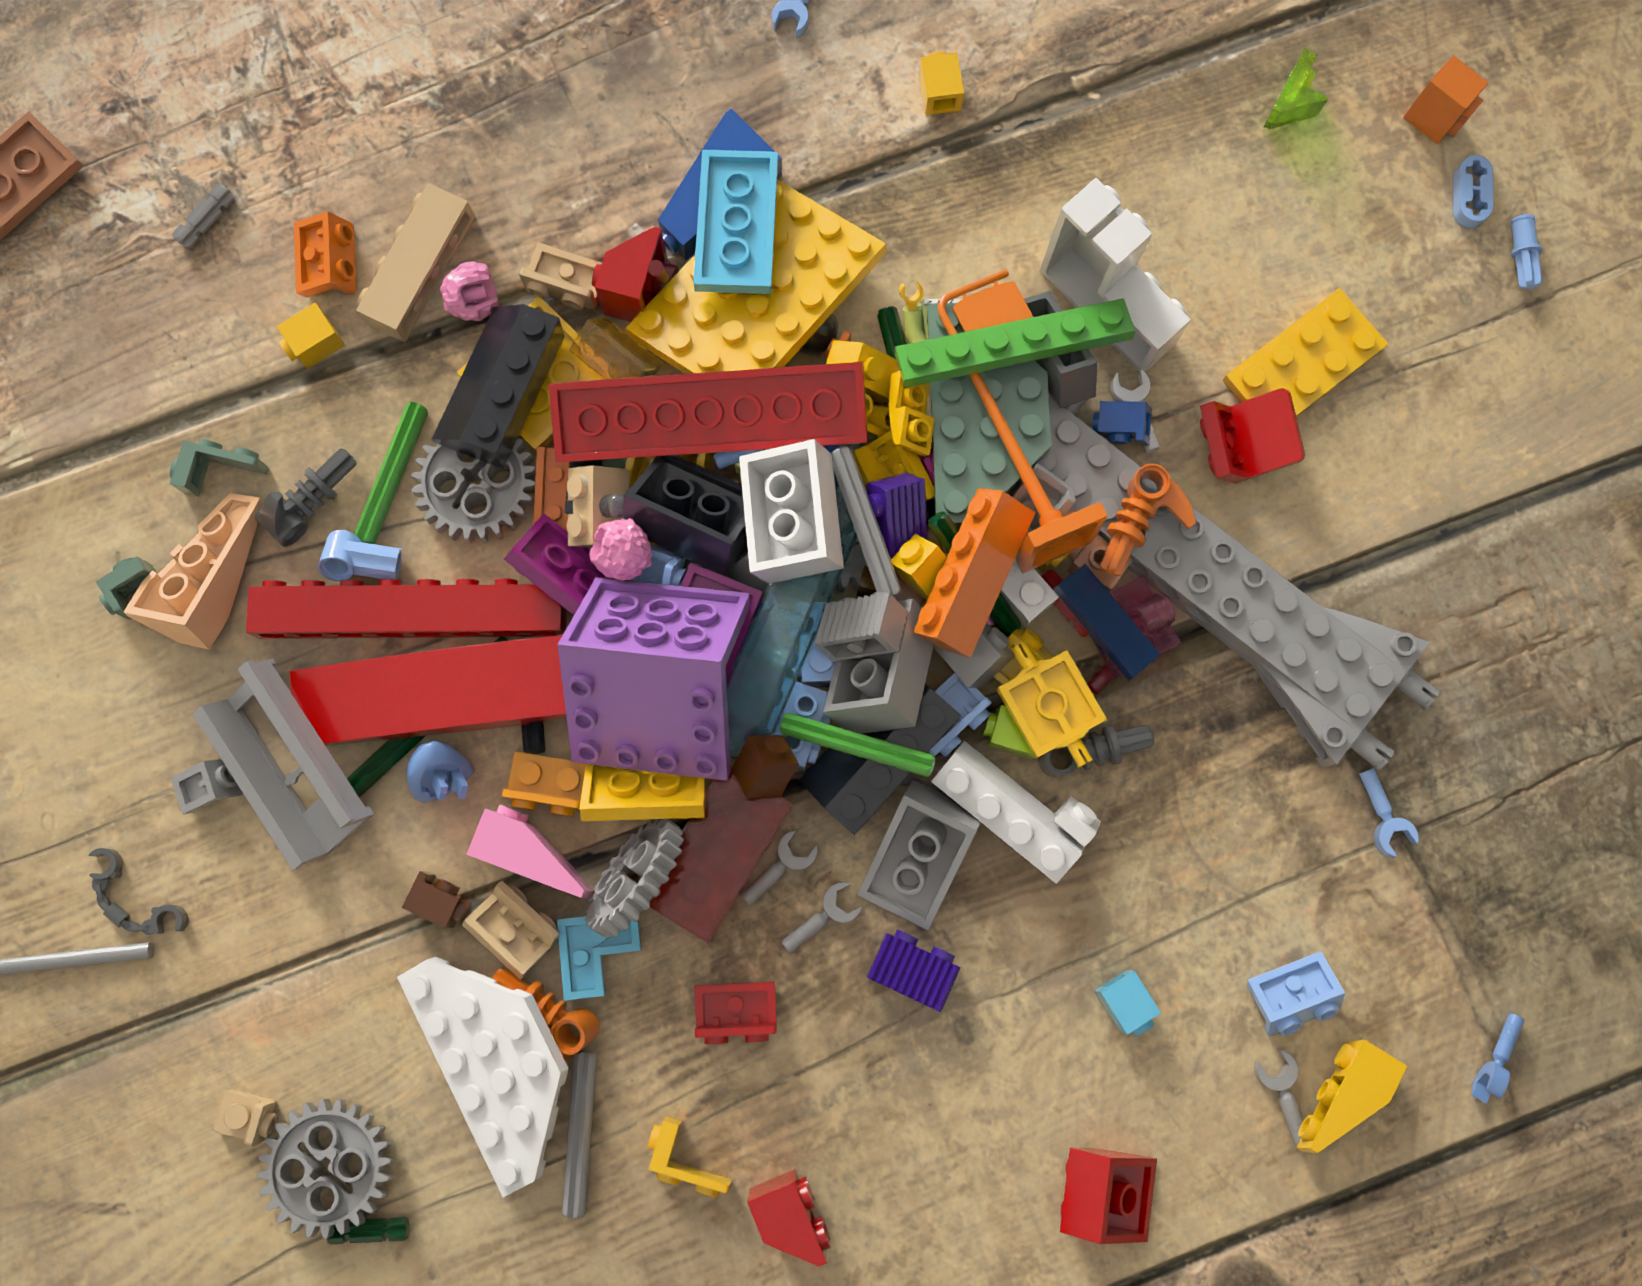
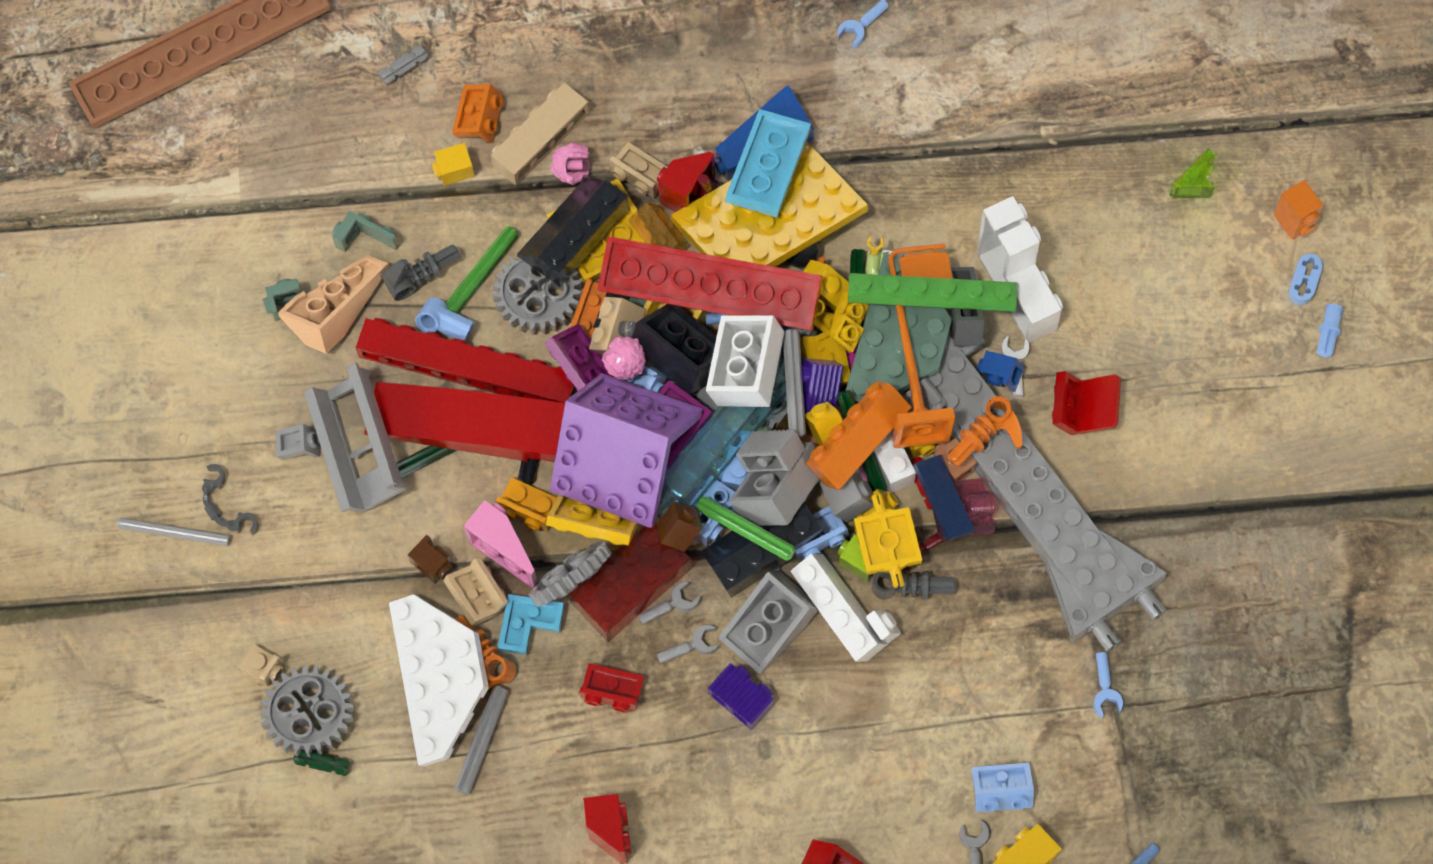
camera: 20 degrees right, 10 degrees down
(436, 771) = (456, 475): medium blue piece -> none
(663, 1142) = (536, 760): yellow bracket -> none
(941, 83) = (943, 106): yellow brick -> none
(1128, 1003) = (883, 758): medium azure brick -> none
(1310, 354) = (1151, 361): yellow plate -> none

